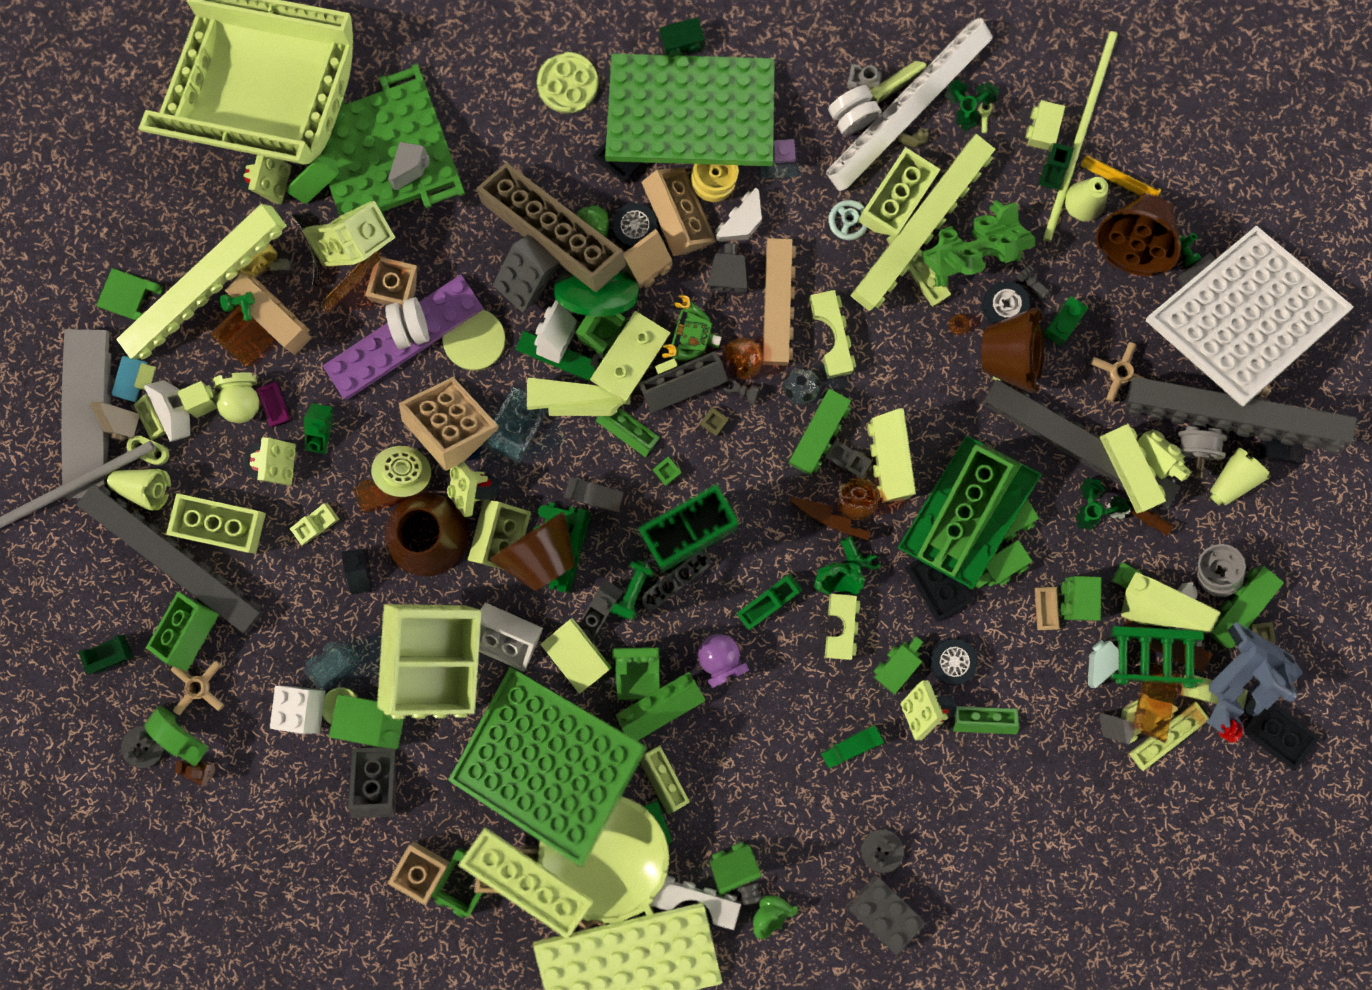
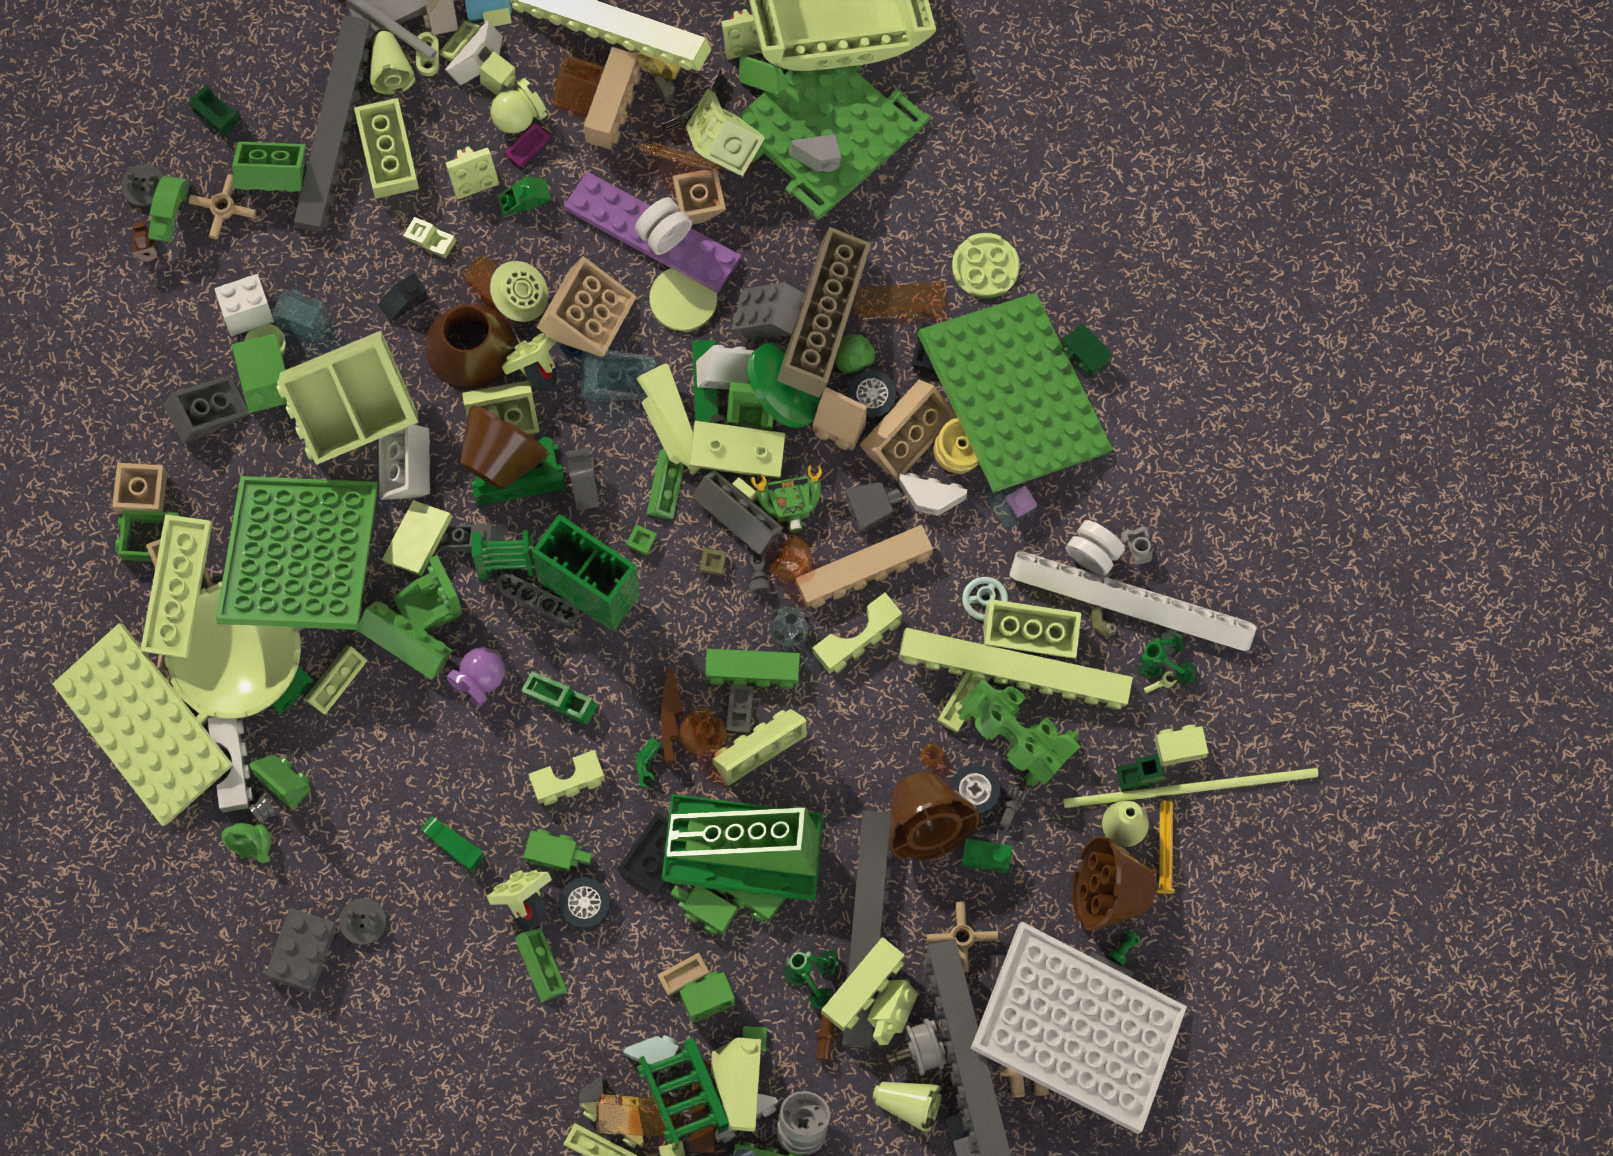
camera: 60 degrees right, 10 degrees down
(228, 303) = (601, 55): green piece -> none
(564, 158) = (896, 298): none -> clear orange windscreen
(840, 578) = (614, 752): green hair -> none
(897, 81) = (1149, 578): yellowish green slope -> none

